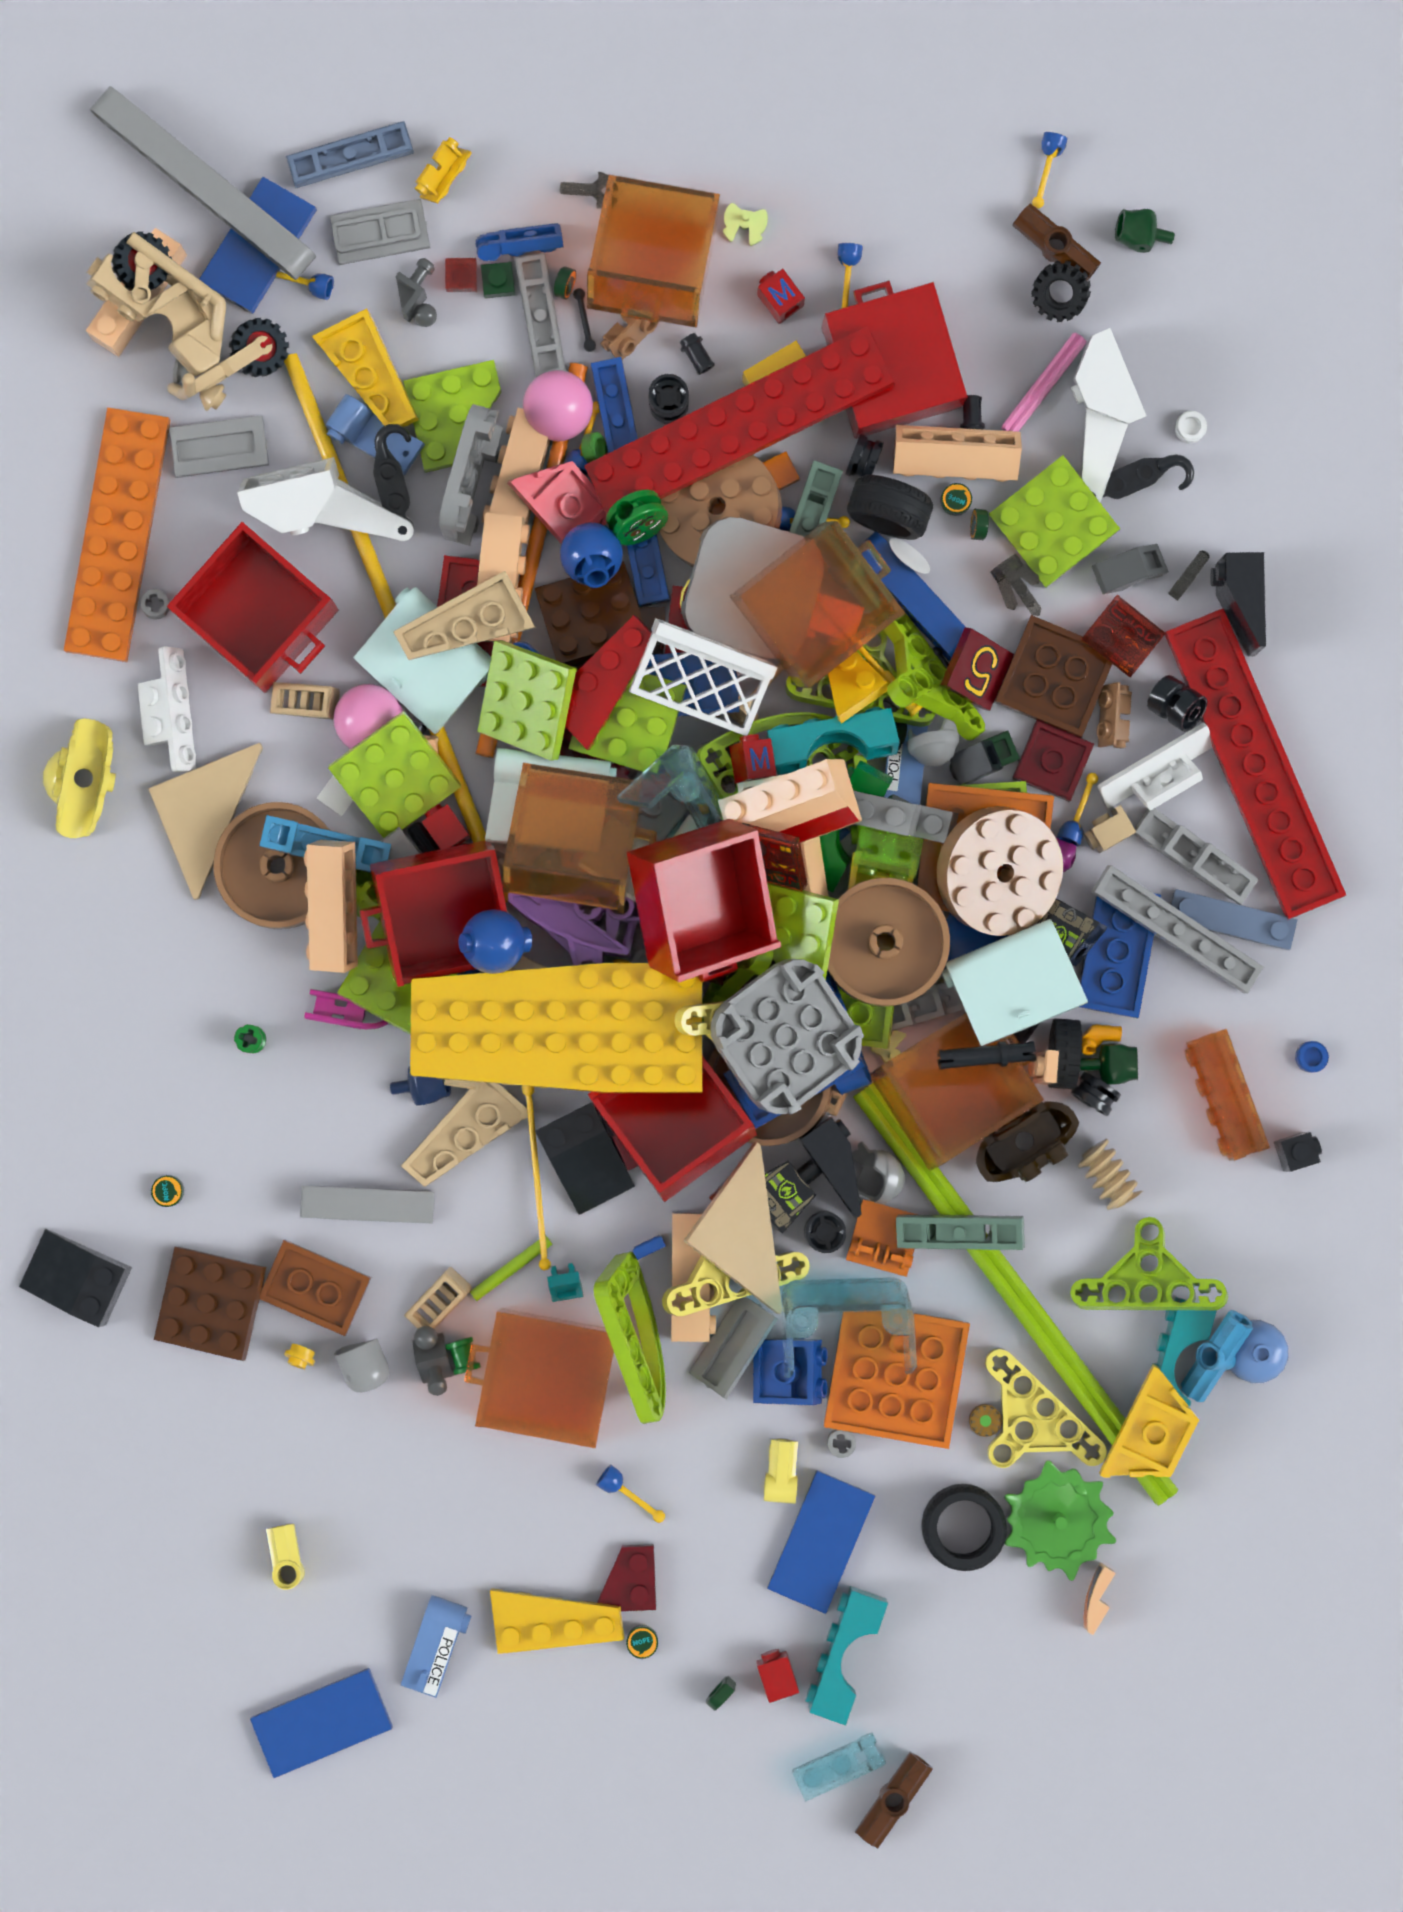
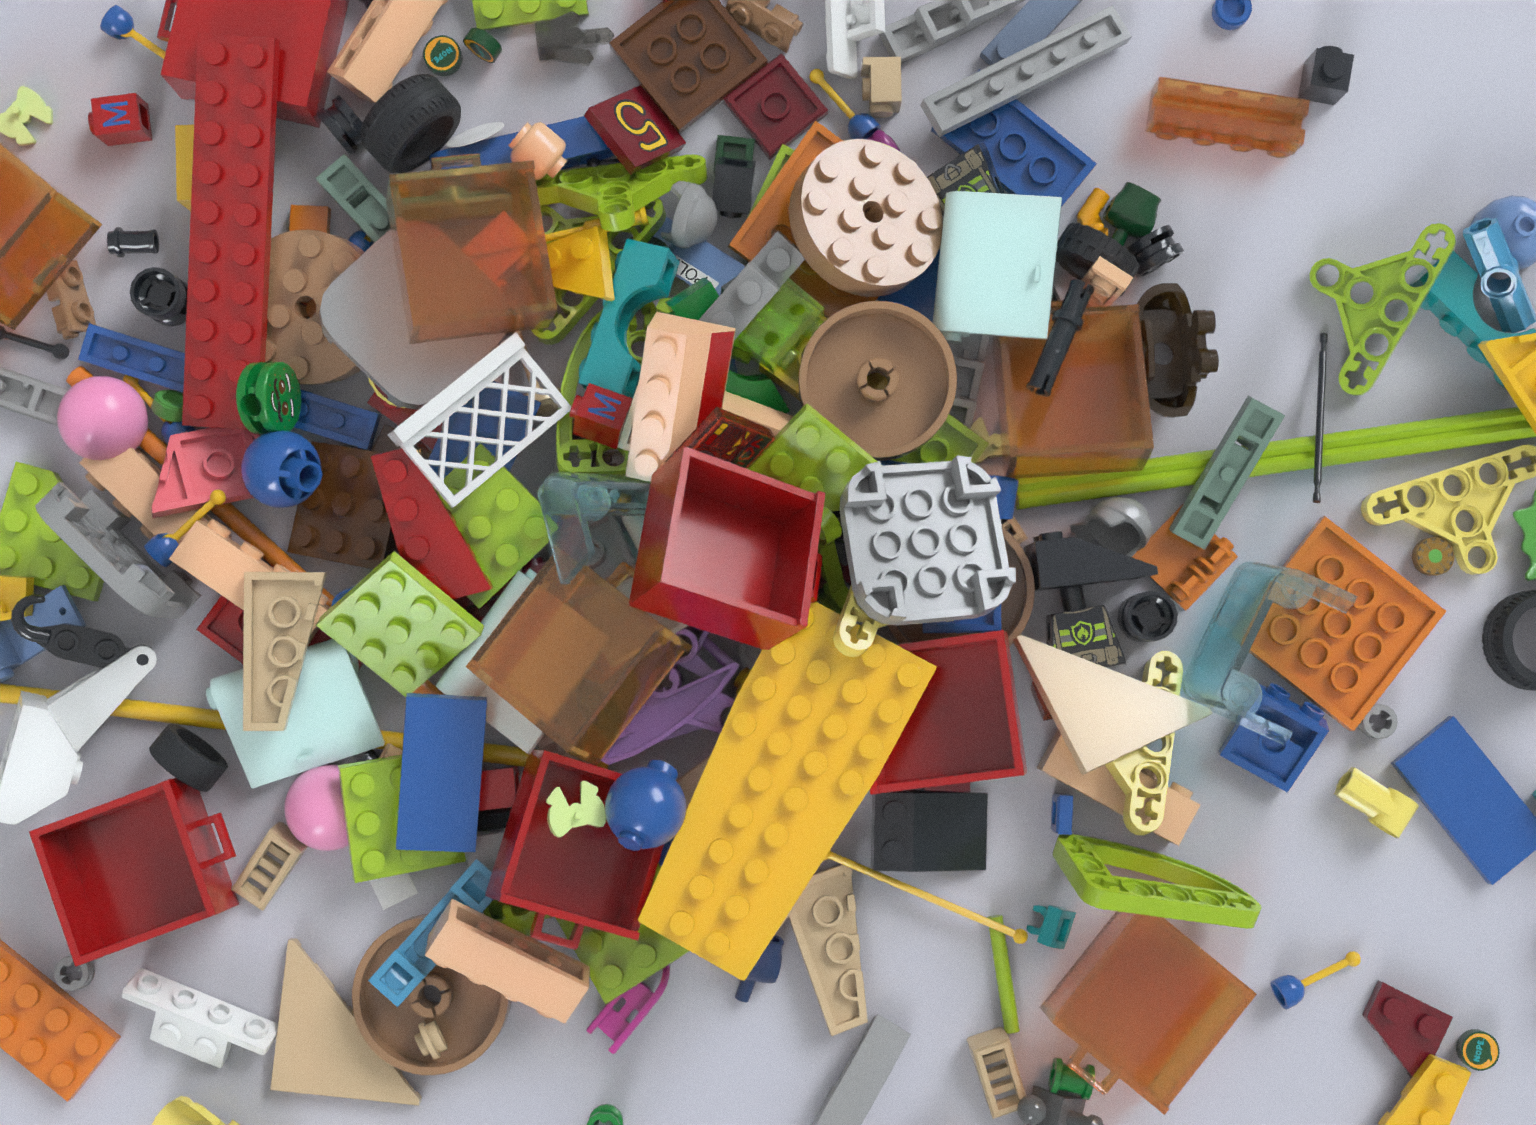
camera: 60 degrees left, 0 degrees up
(245, 882) = (430, 1039): none -> tan plate
(351, 601) = (188, 757): none -> black tyre
(438, 786) = (441, 772): none -> blue tile
(456, 889) = (564, 817): none -> yellowish green piece
(492, 503) = (164, 544): none -> hinge
(733, 1346) = (1217, 781): light grey piece -> none
(921, 609) = (539, 144): none -> light nougat head
(1028, 1285) = (1320, 418): none -> black piece
(1108, 1175) = (1246, 283): tan piece -> none

